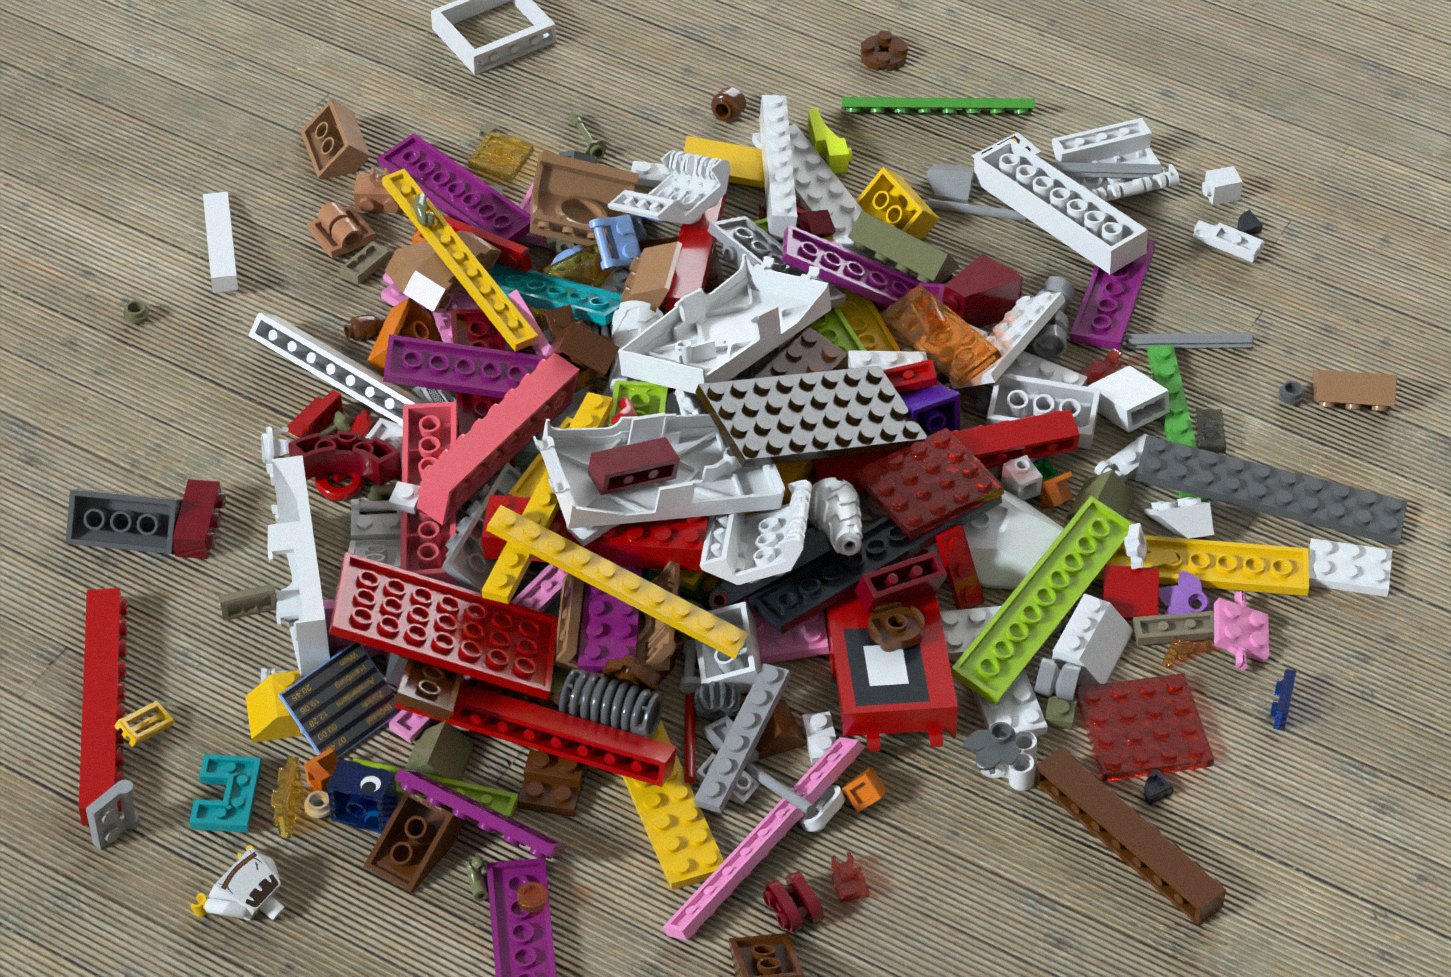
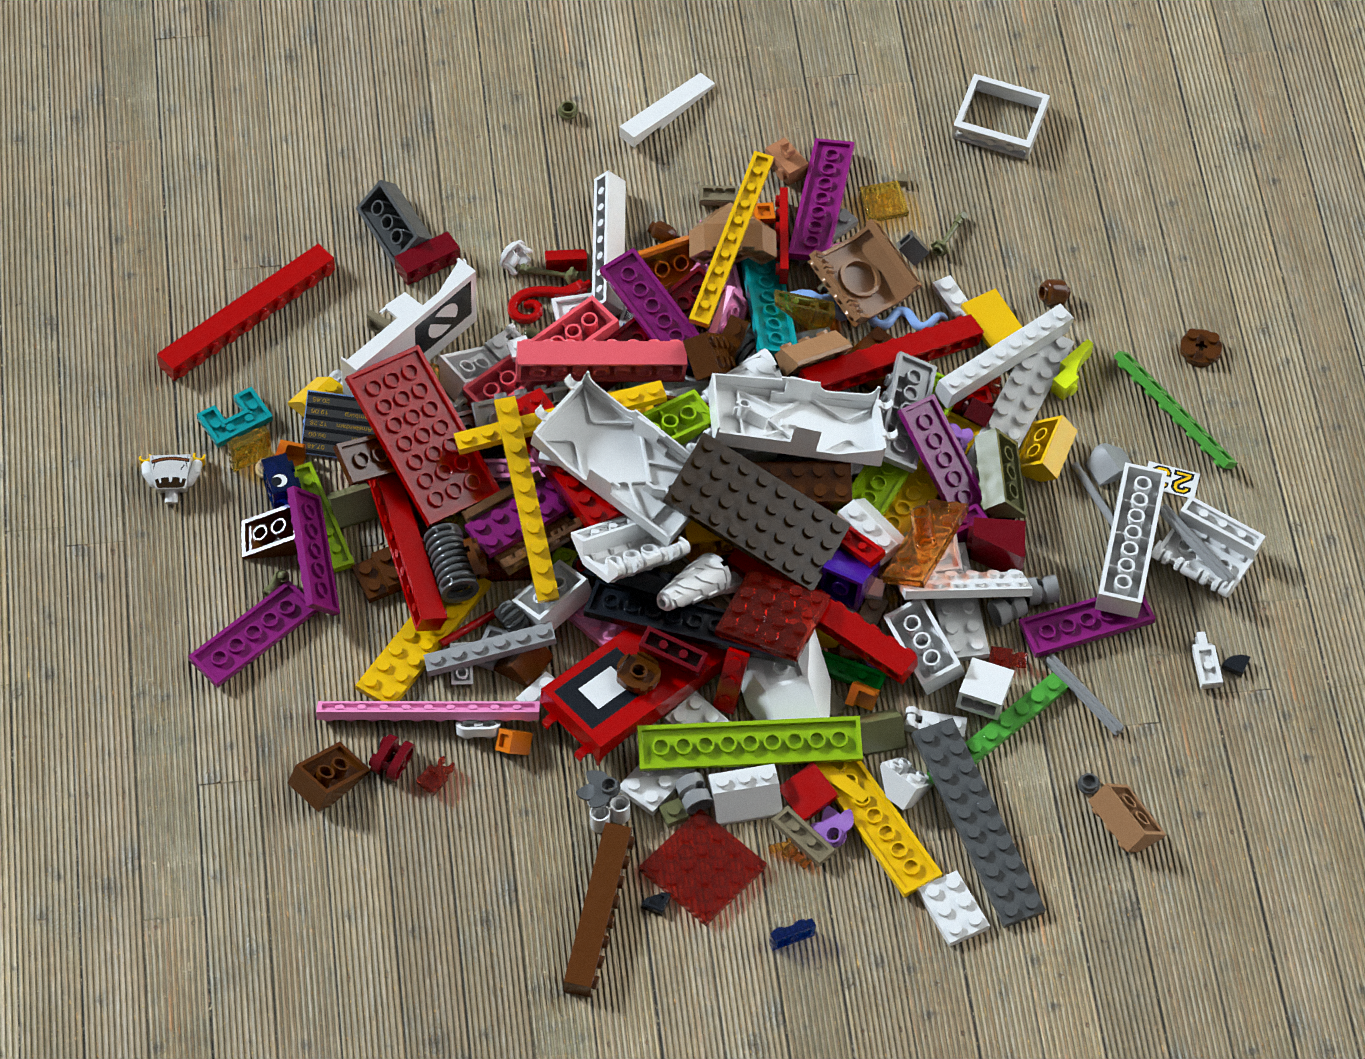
camera: 50 degrees right, 10 degrees up
(104, 816) = (159, 373): light grey plate -> none
(150, 732) = (264, 353): yellow tile -> none
(335, 141) = (810, 107): medium nougat slope -> none
(340, 229) = (731, 162): nougat plate -> none
(348, 454) = (534, 290): dark red brick -> none
(420, 205) = (742, 189): olive arm -> none
(531, 896) = (280, 619): clear orange tile -> none
(621, 238) = (843, 315): light blue plate -> none
(626, 410) = (661, 413): arm -> none
(633, 465) = (607, 442): dark red brick -> none
(683, 197) = (910, 320): white slope -> none
(780, 789) = (468, 694): light grey bar -> none
(1022, 478) = (847, 668): white brick -> none
(1136, 545) = (843, 769): white plate -> none
(1210, 430) = (1005, 755): clear smoke plate -> none
(1222, 185) = (1257, 626): white brick -> none
(1241, 630) = (832, 874): bright pink plate -> none

